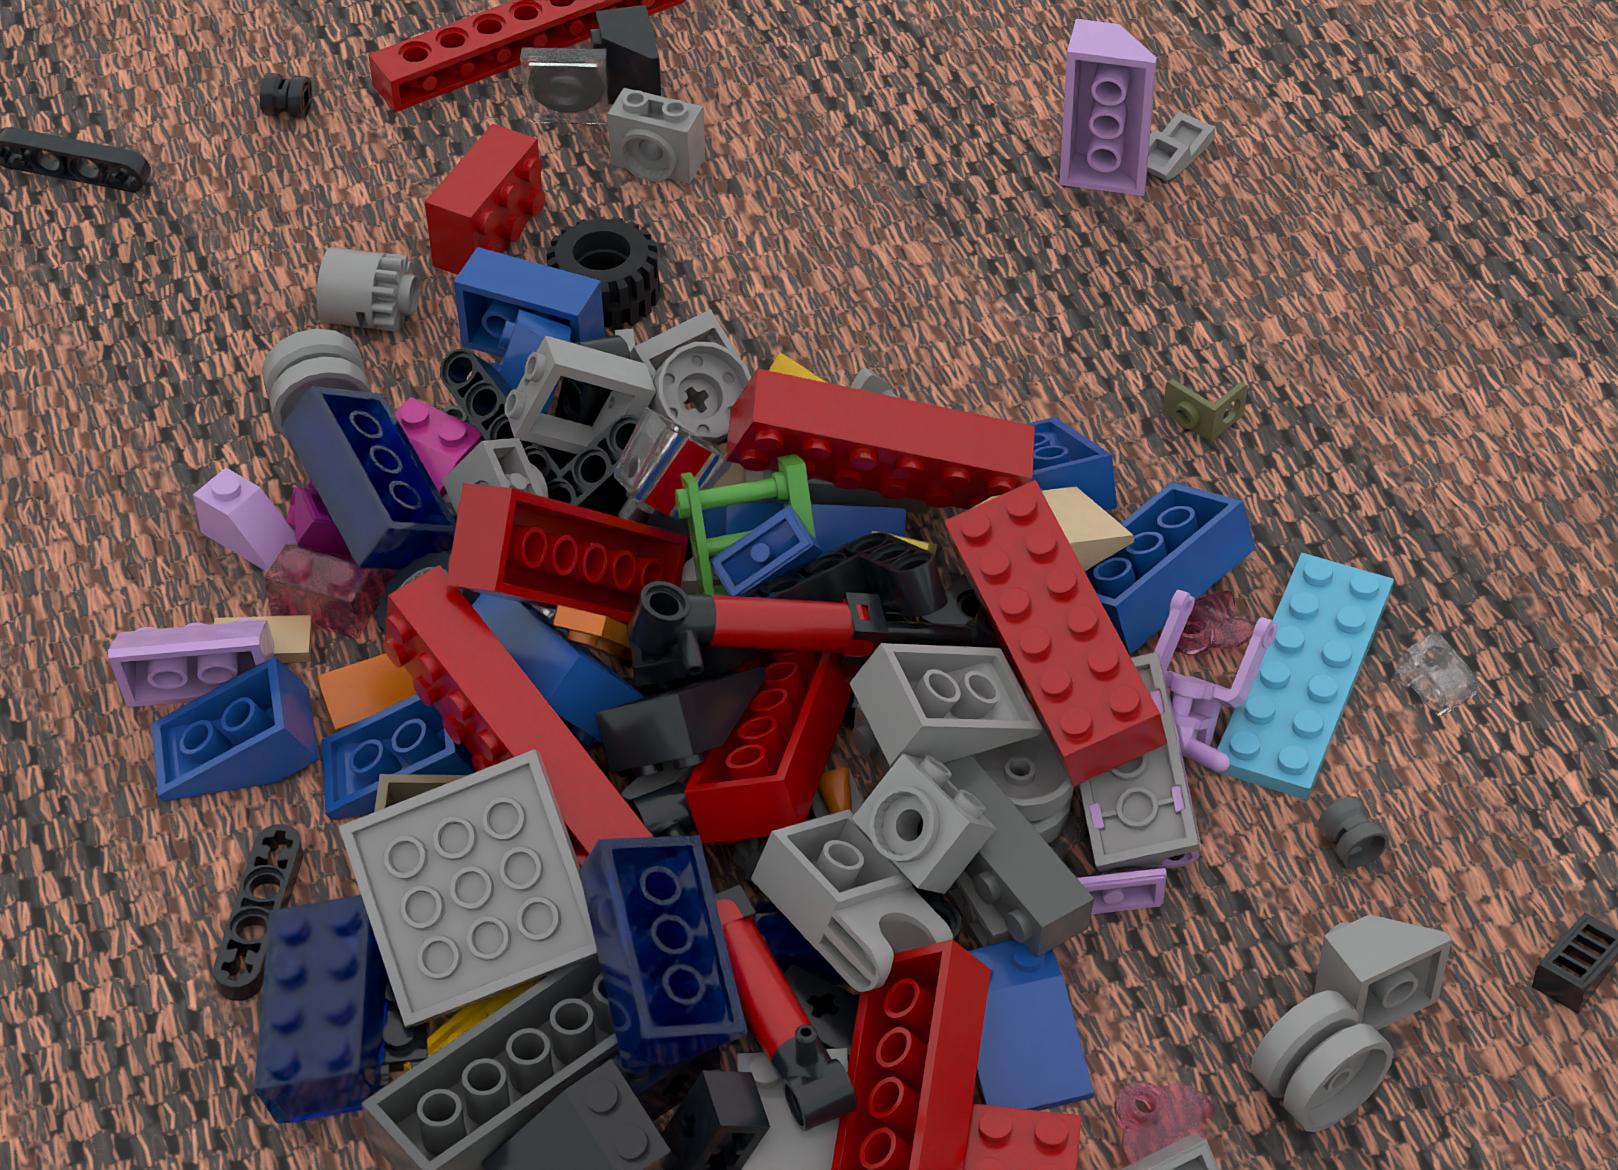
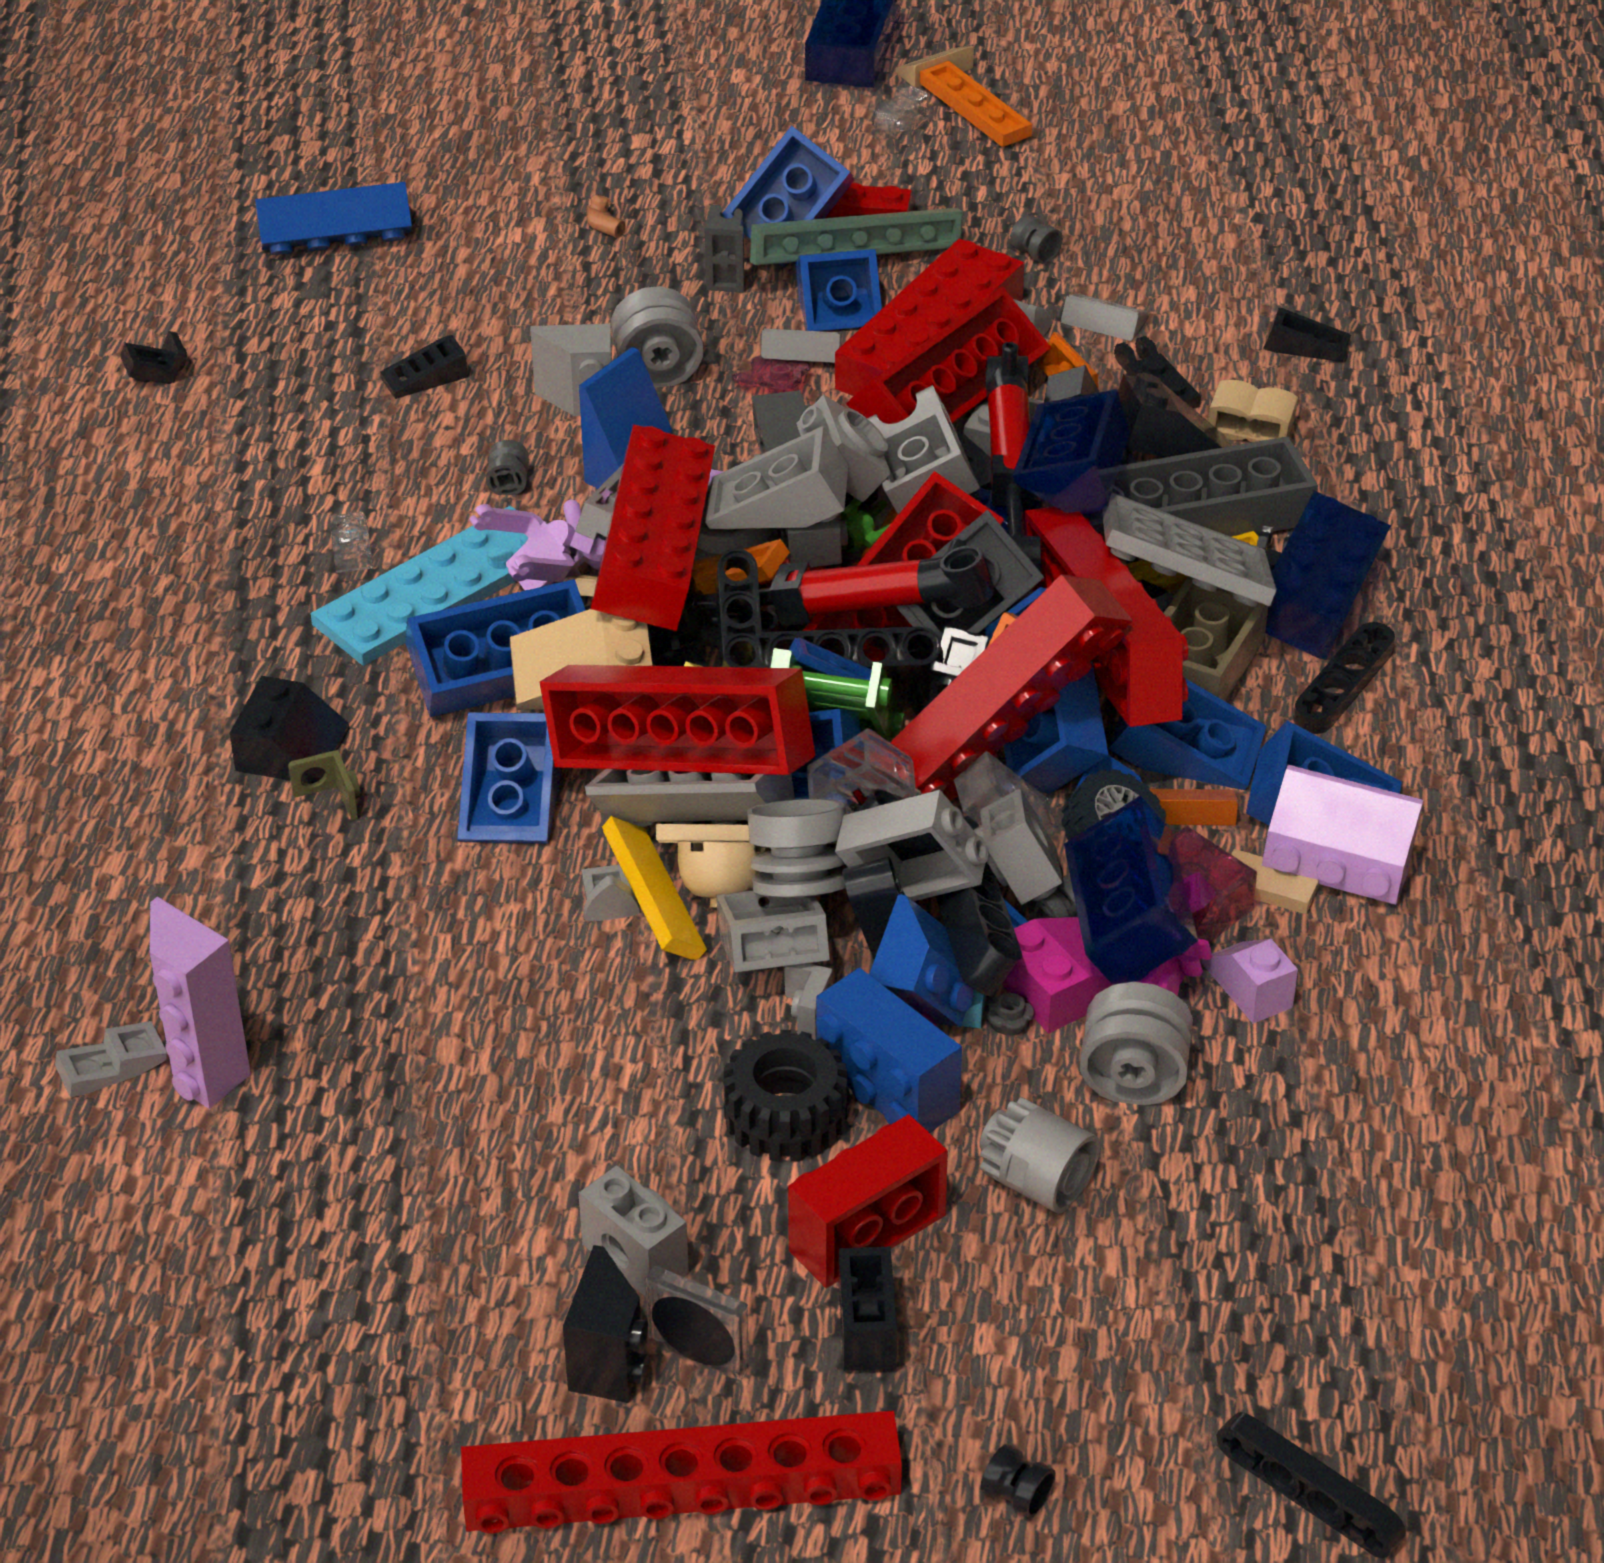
camera: 155 degrees left, 5 degrees down
(441, 135) = (867, 1308): none -> black brick
(1234, 882) = (609, 407): none -> blue slope
(1290, 439) = (283, 725): none -> black slope

